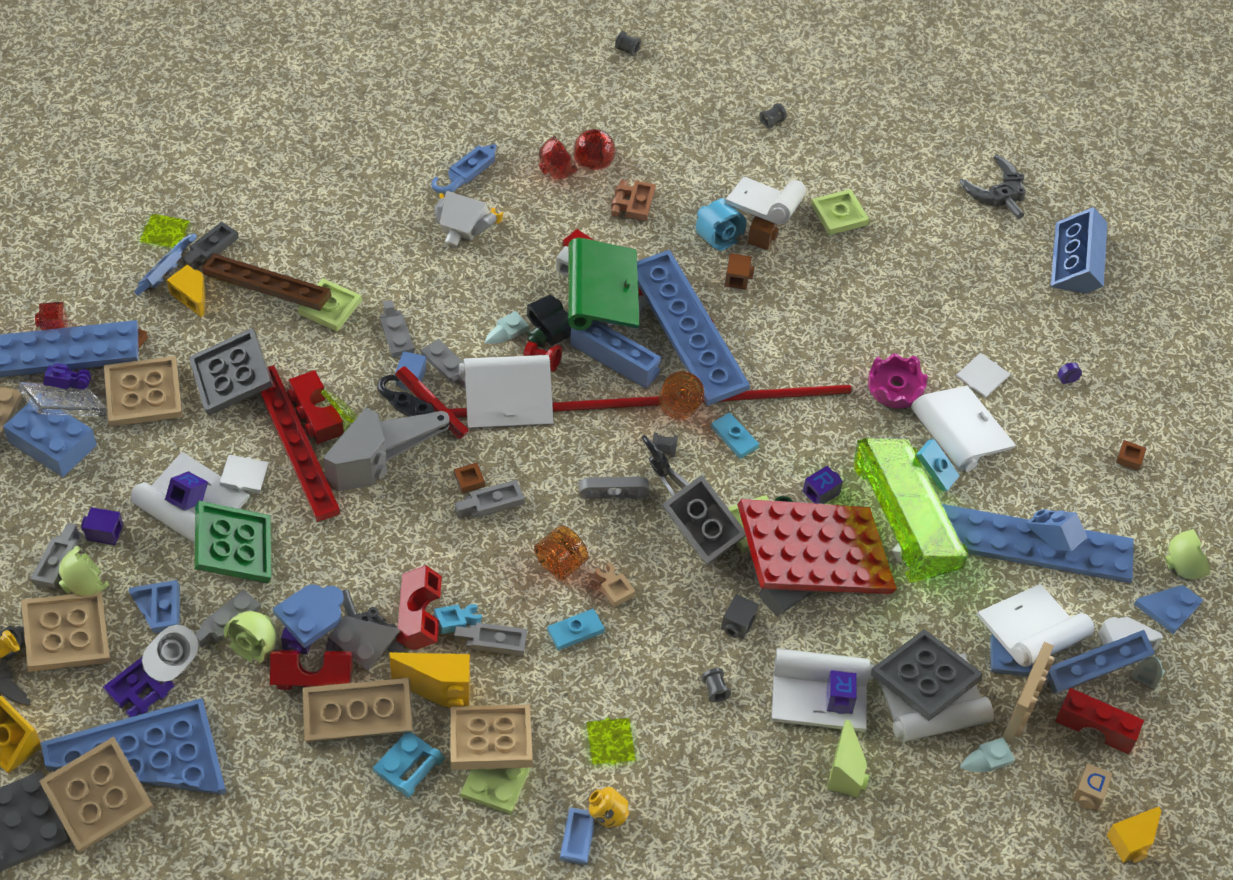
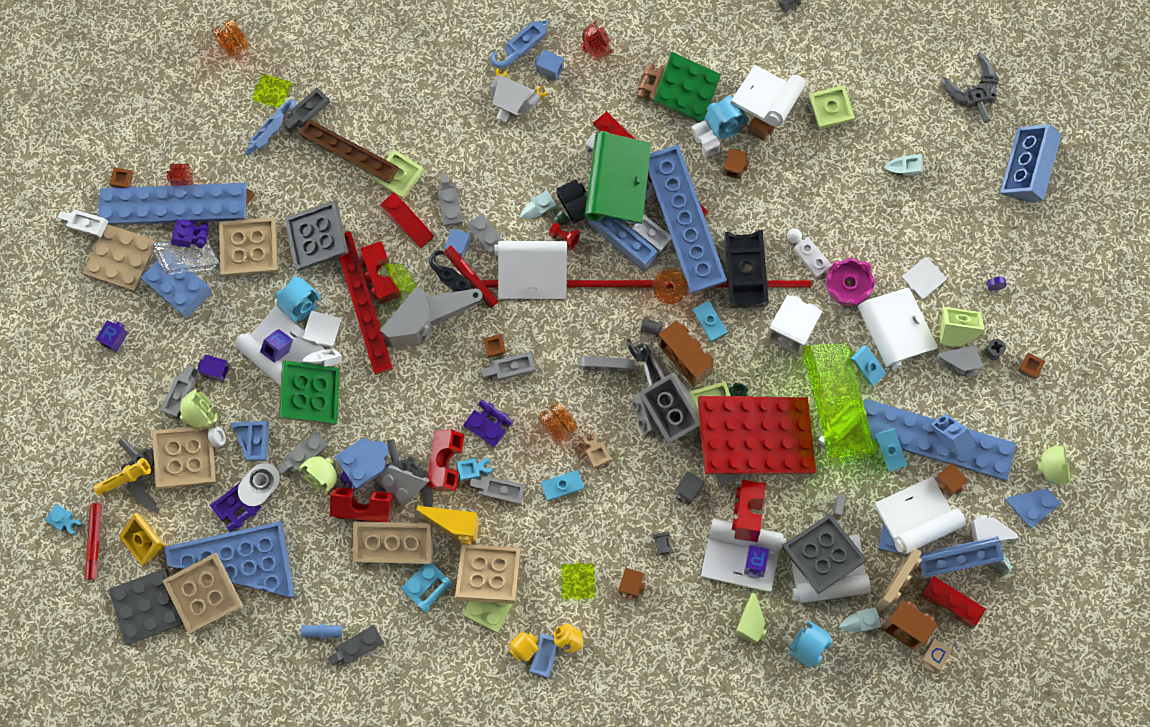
camera: 15 degrees right, 20 degrees up
(109, 605) = (216, 437): none -> white tile
(111, 175) = (230, 38): none -> clear orange wheel
(188, 288) = (288, 152): yellow slope -> none
(211, 434) = (297, 299): none -> medium azure brick
(253, 503) = (326, 357): none -> white plate
(267, 831) = (321, 631): none -> medium blue pin
(317, 848) = (356, 646): none -> dark grey hinge
(342, 349) = (406, 220): none -> red slope
(467, 572) = (486, 429): none -> dark purple plate
(503, 186) = (549, 64): none -> medium blue brick
(549, 824) = (524, 646): none -> yellow head
(594, 149) = (630, 29): clear red cylinder -> none
(648, 341) = (652, 233): none -> white plate
(667, 535) = (645, 421): none -> light grey hinge
(668, 200) = (686, 87): none -> green plate
(683, 735) = (631, 584): none -> dark orange brick
(704, 454) = (685, 353): none -> dark orange brick
(705, 251) = (704, 135): none -> white leg
(771, 394) = (750, 287): none -> black piece
(820, 633) = (747, 524): none -> red arch
(822, 486) = (773, 376): dark purple brick -> none
(837, 430) = (793, 324): none -> white slope
(841, 357) = (808, 253): none -> white plate
(929, 785) = (810, 644): none -> medium azure brick
(933, 621) = (838, 506): none -> light grey tile
(940, 262) = (907, 165): none -> light aqua plate
(984, 554) = (891, 449): none -> medium azure plate
(1036, 421) = (960, 326): none -> yellowish green slope
(1047, 454) = (961, 361): none -> light grey slope
(1053, 745) = (909, 625): none -> dark orange brick
(1065, 583) = (951, 480): none -> dark orange brick
(1084, 438) = (997, 344): none -> dark grey bush
(1135, 835) = (960, 698): yellow slope -> none

